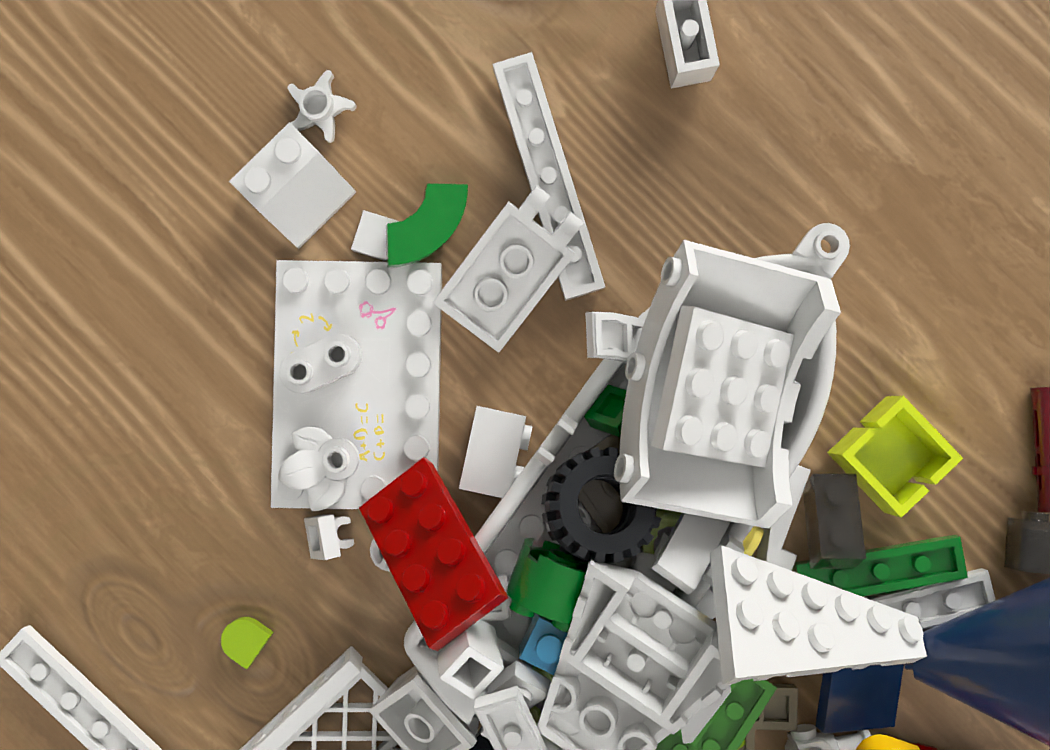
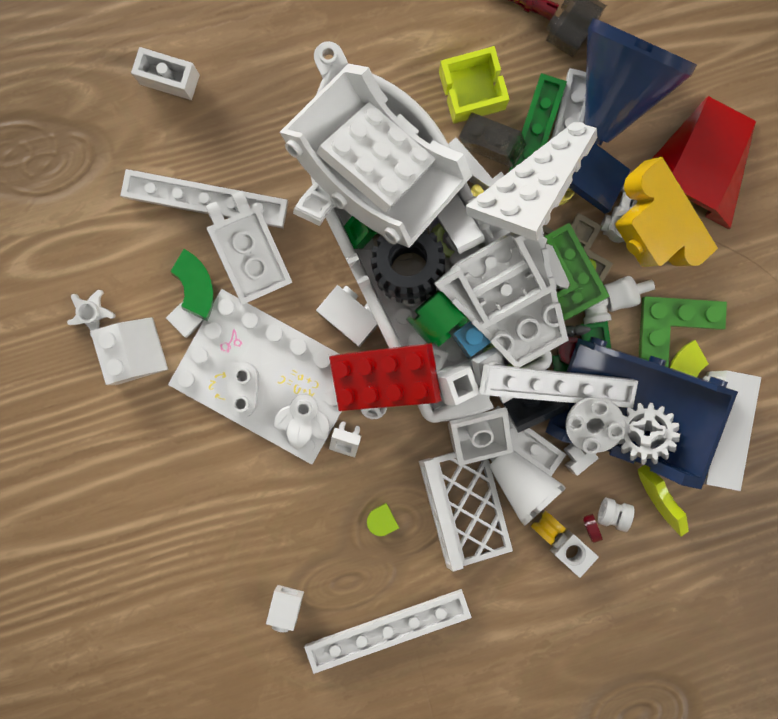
camera: 60 degrees left, 0 degrees up
(60, 574) = (284, 608): none -> white brick

